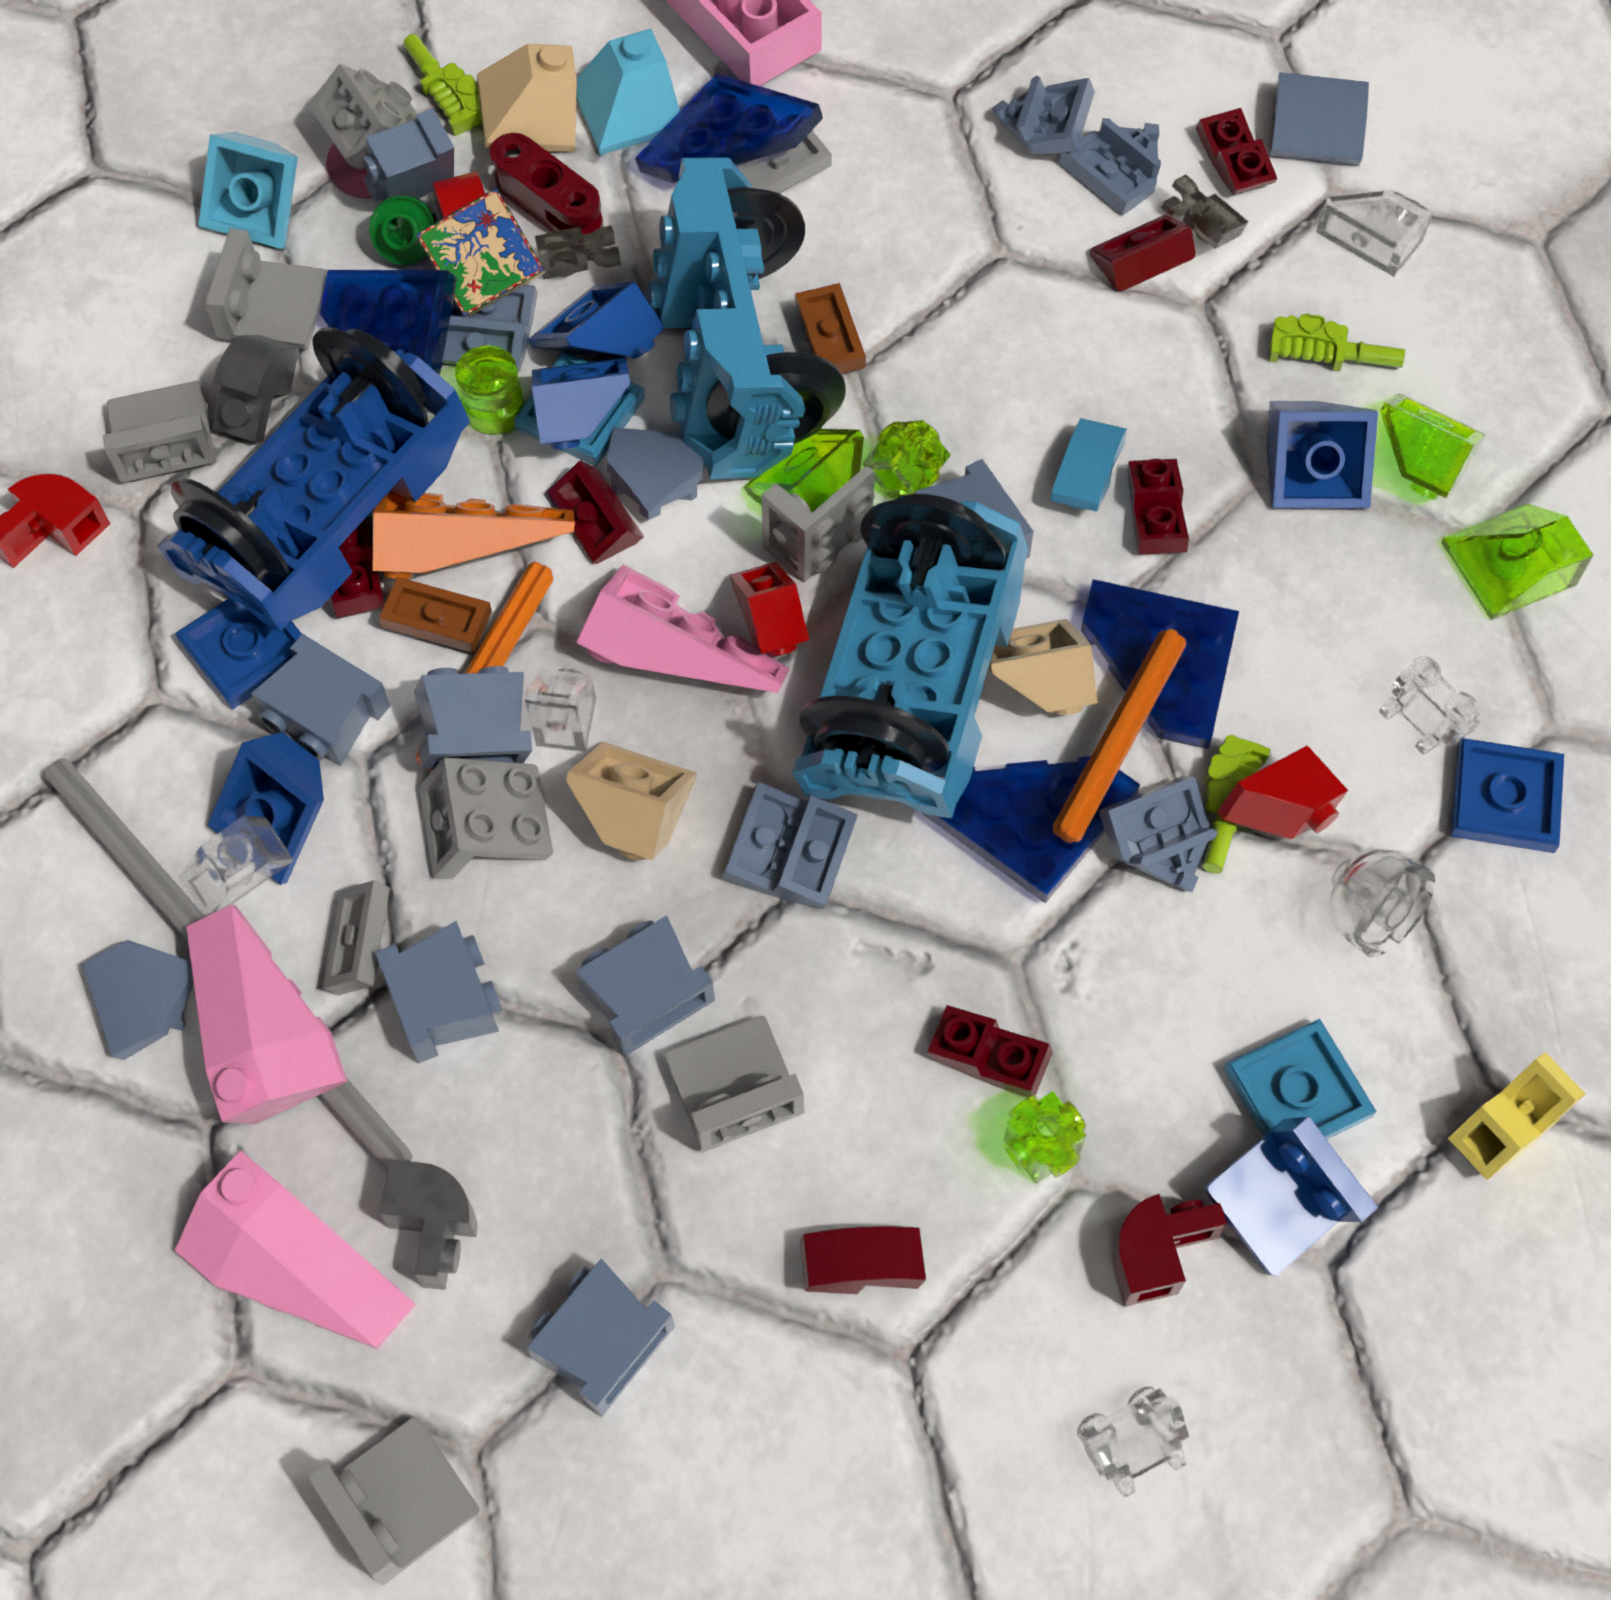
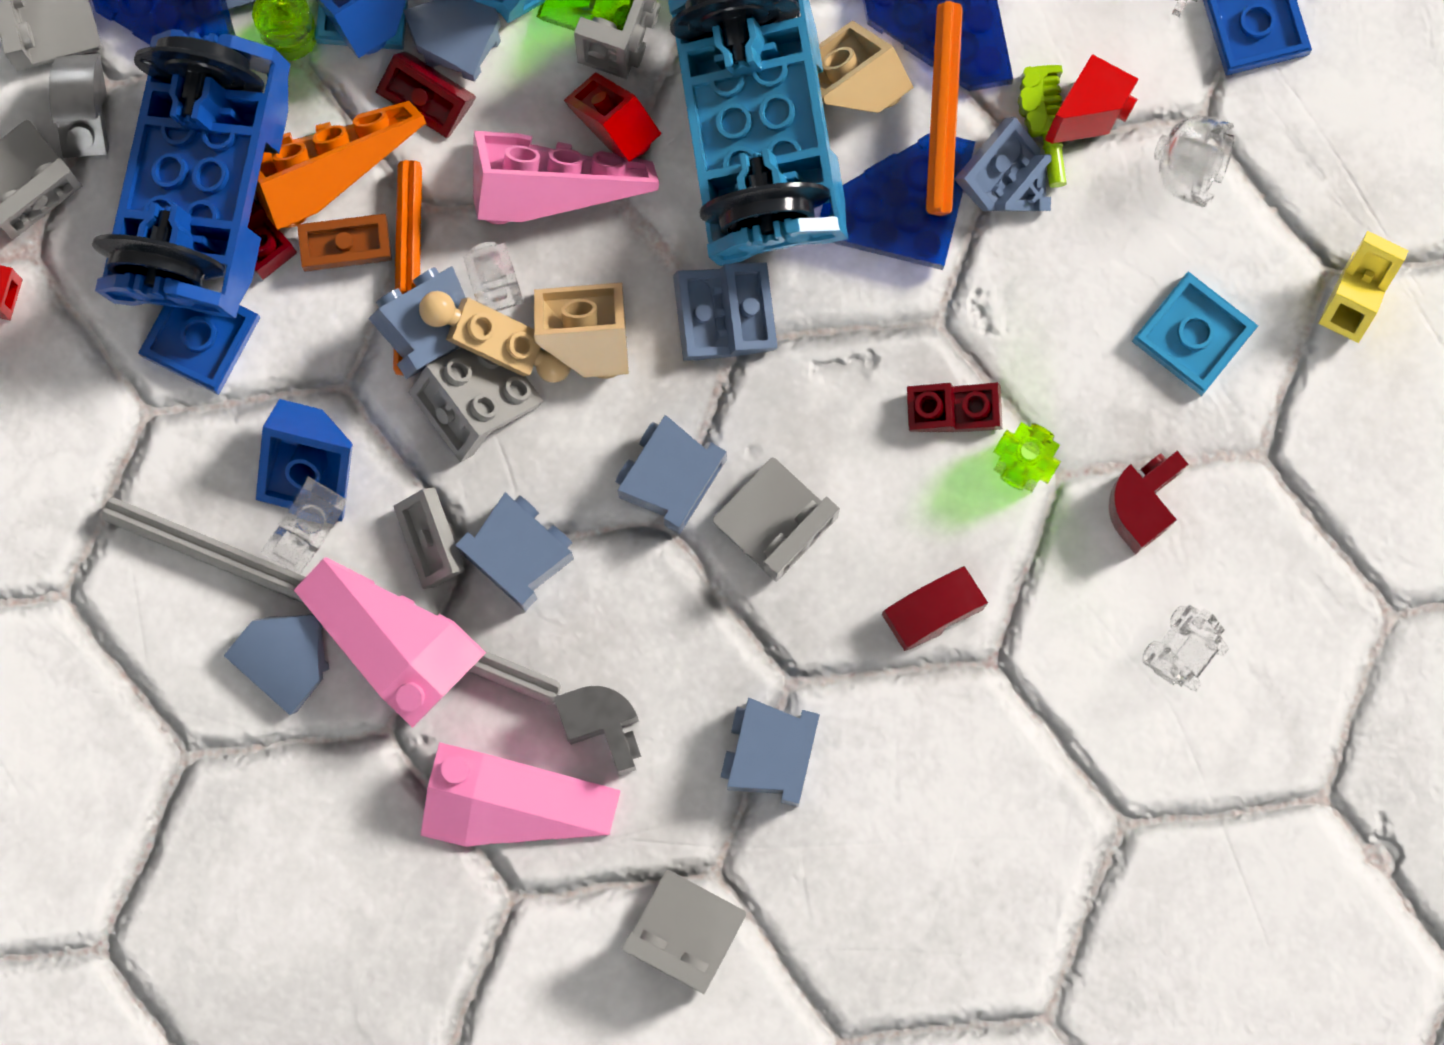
camera: 25 degrees left, 15 degrees up
(320, 700) = (292, 358): sand blue hips -> none
(526, 758) = (491, 336): none -> tan plate
(1288, 1193) = (1220, 419): bracket -> none

